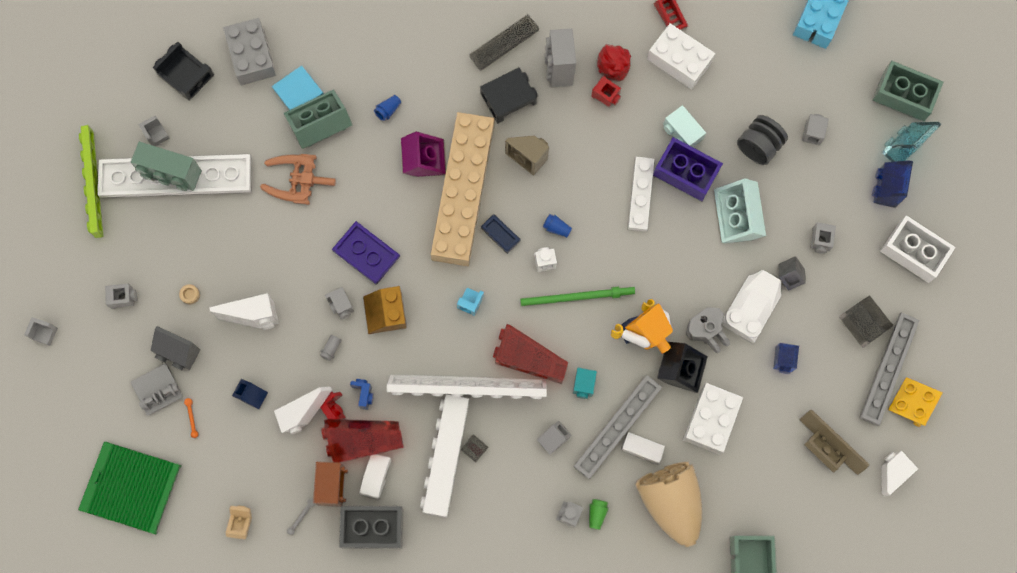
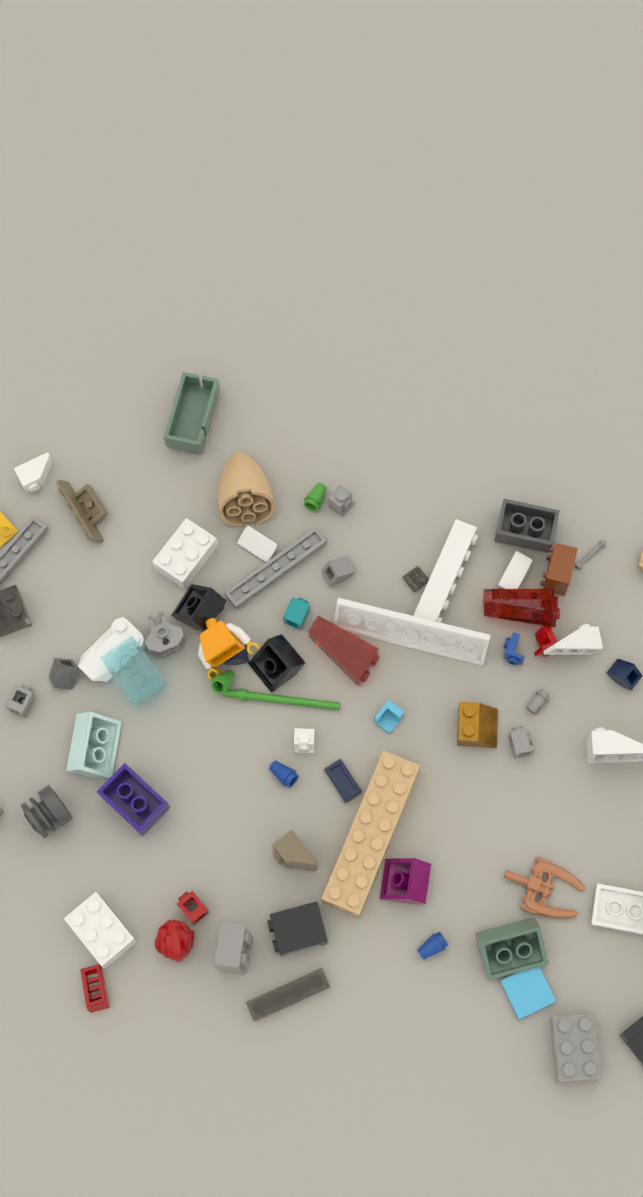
camera: 160 degrees left, 5 degrees down
(366, 252) = (485, 792): dark purple tile -> none
(590, 329) = (276, 662): none -> black slope
(637, 296) = (222, 682): none -> bright green cone
(641, 194) = (187, 790): white plate -> none
(684, 127) = (122, 847): light aqua brick -> none
(725, 284) = (133, 671): none -> clear light blue slope
(786, 358) = (97, 594): clear blue brick -> none

